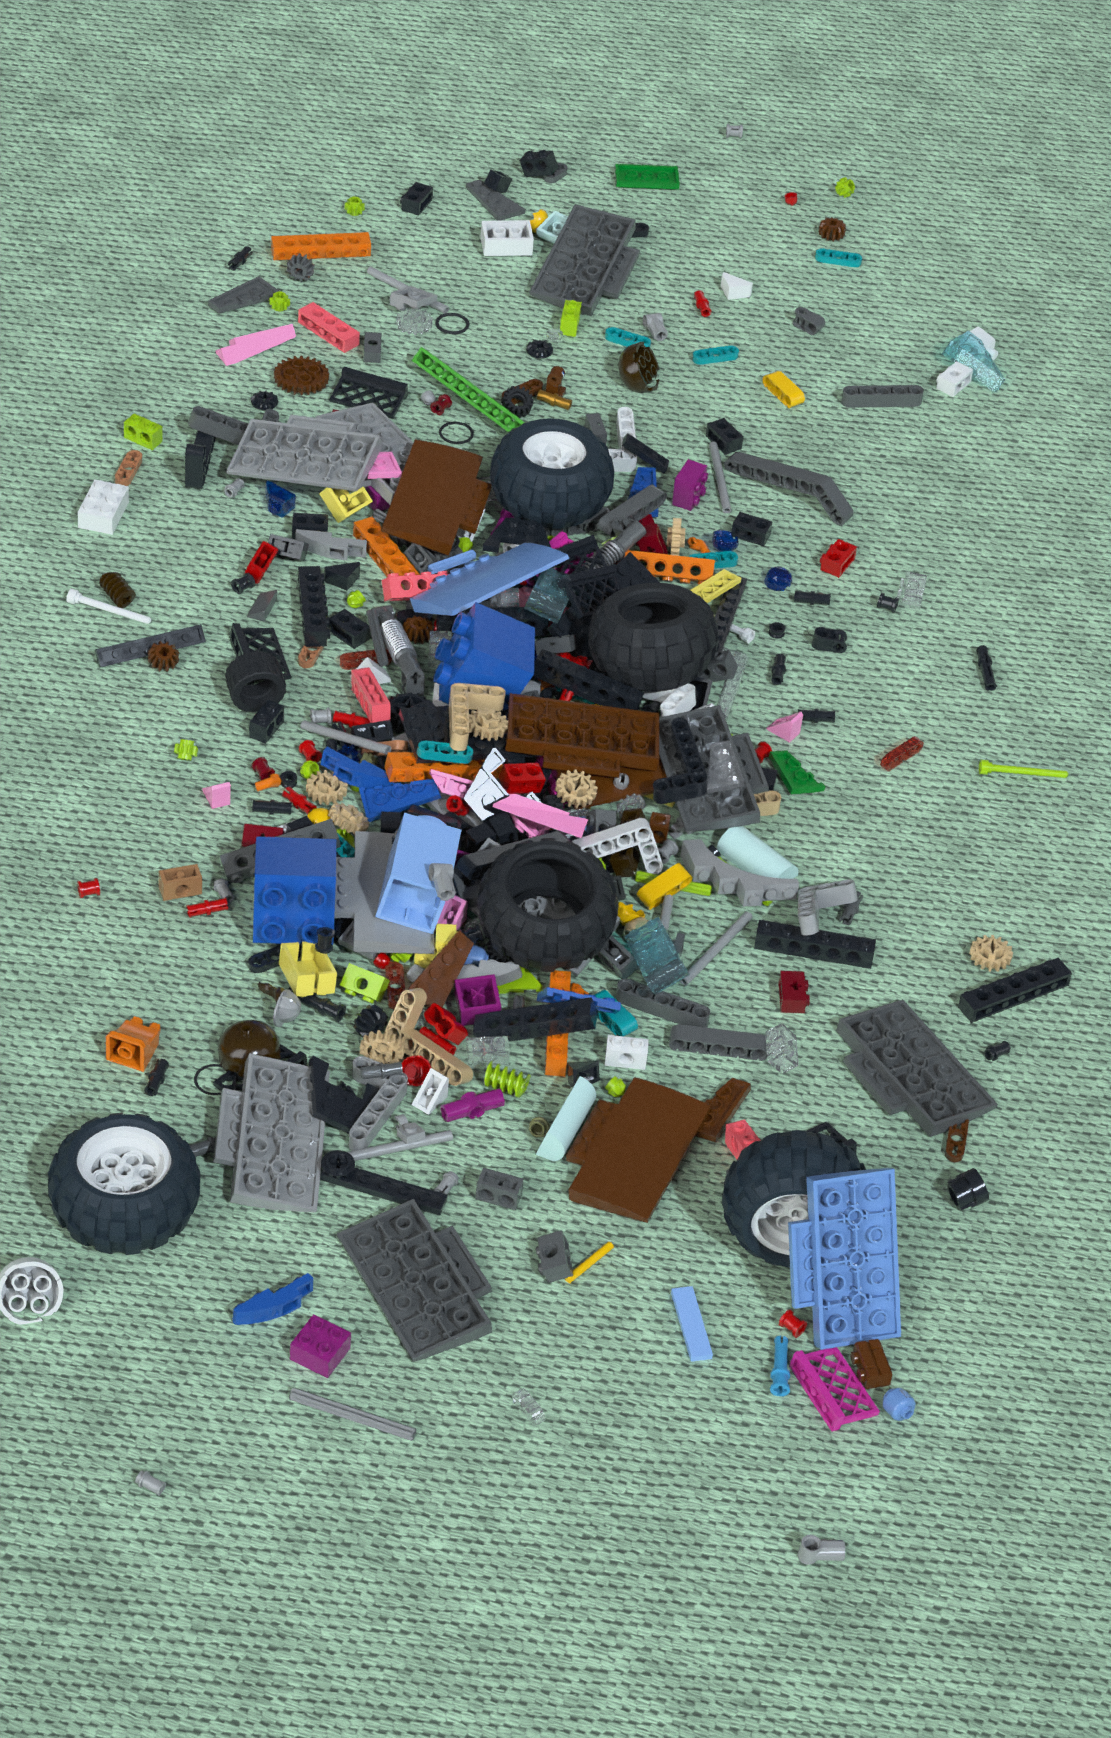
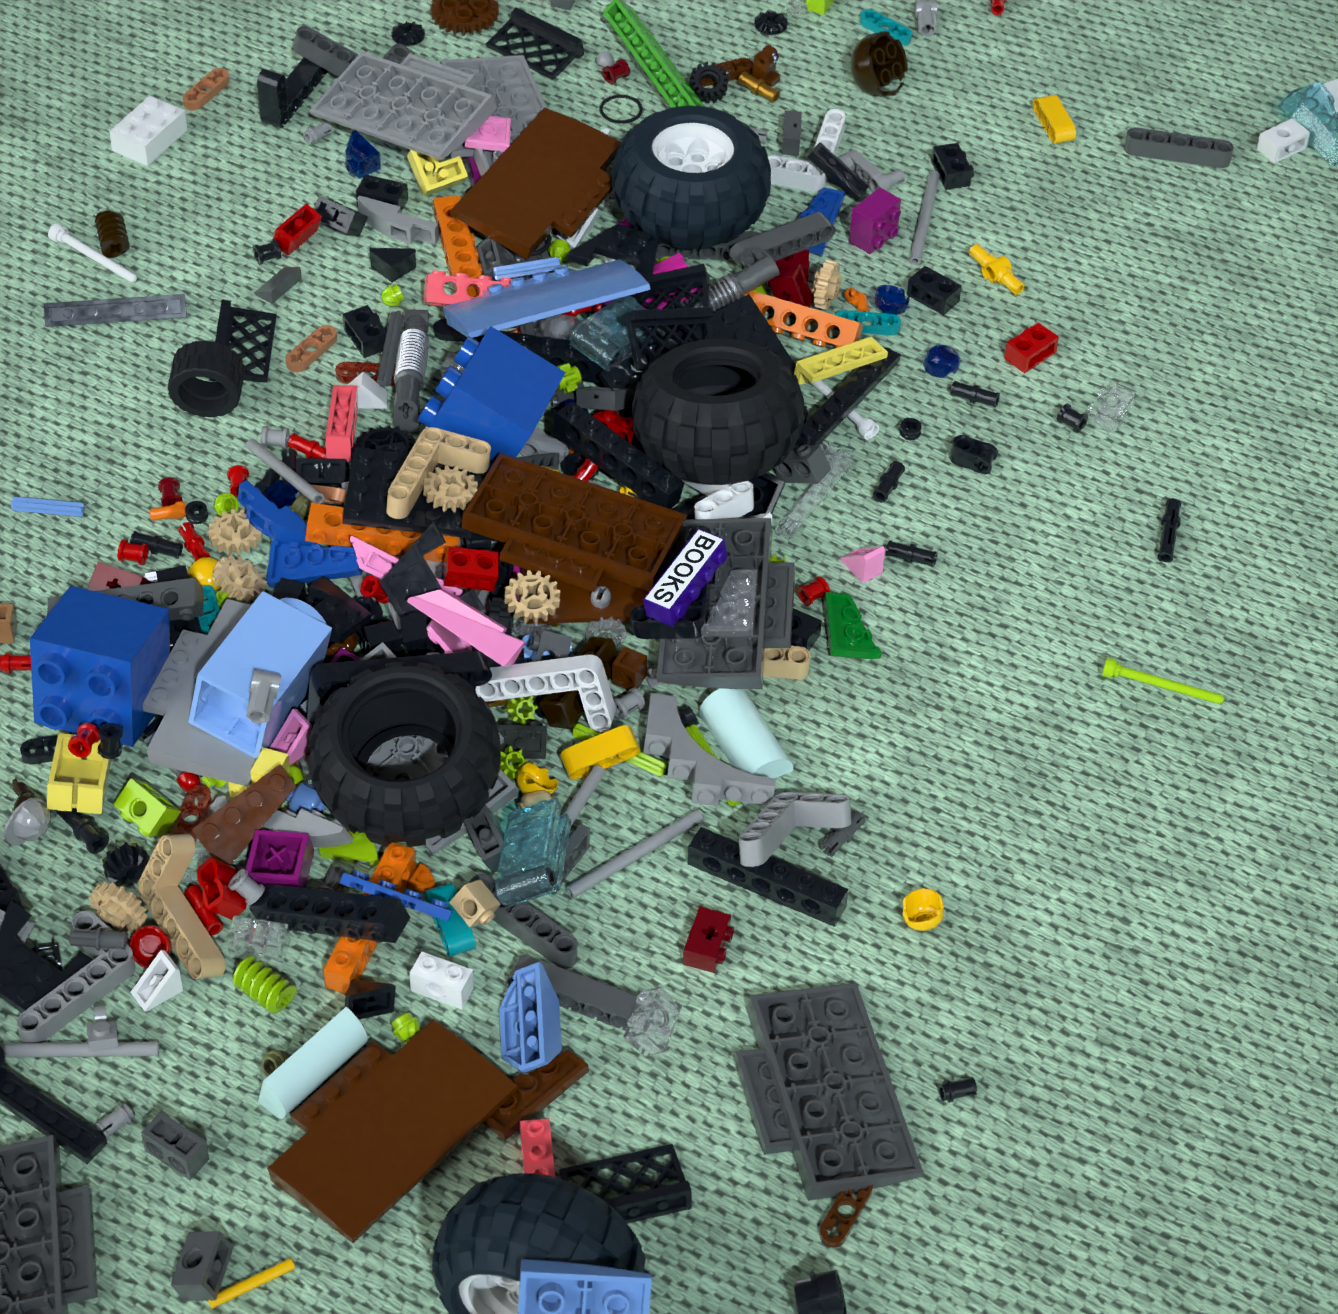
camera: 20 degrees right, 5 degrees up
(143, 431) = (242, 48): lime brick -> none
(163, 656) = (122, 326): reddish brown gear -> none
(174, 795) = (47, 506): none -> medium blue axle
(185, 750) = (87, 450): lime gear -> none
(218, 794) = (97, 516): bright pink slope -> none
(258, 815) = (133, 552): none -> red bush
(266, 721) = (204, 432): black brick -> none
(308, 943) = (84, 740): none -> red bush
(313, 606) = (333, 295): black brick -> none
(418, 629) = (446, 342): reddish brown gear -> none
(432, 746) = (359, 516): teal beam -> none
(468, 1019) = (246, 887): none -> light grey bush
(472, 1105) = (204, 1012): magenta piece -> none
(474, 934) = (301, 773): black bush -> none
(621, 996) = (475, 903): none -> tan brick
(675, 456) = (869, 173): none -> light grey beam
(686, 753) = (685, 577): none -> brick
(698, 1064) = (530, 1020): none -> medium blue wedge
(725, 353) = (967, 63): teal beam -> none
(789, 506) = (996, 269): none -> yellow pin
(794, 479) = (1015, 237): dark grey beam -> none
(809, 321) = (1123, 39): dark grey piece -> none
(902, 752) = (1004, 626): clear red beam -> none
(928, 944) = (923, 909): none -> yellow hair
(991, 953) = (1018, 948): tan gear -> none
(1014, 990) = (1087, 998): black brick -> none

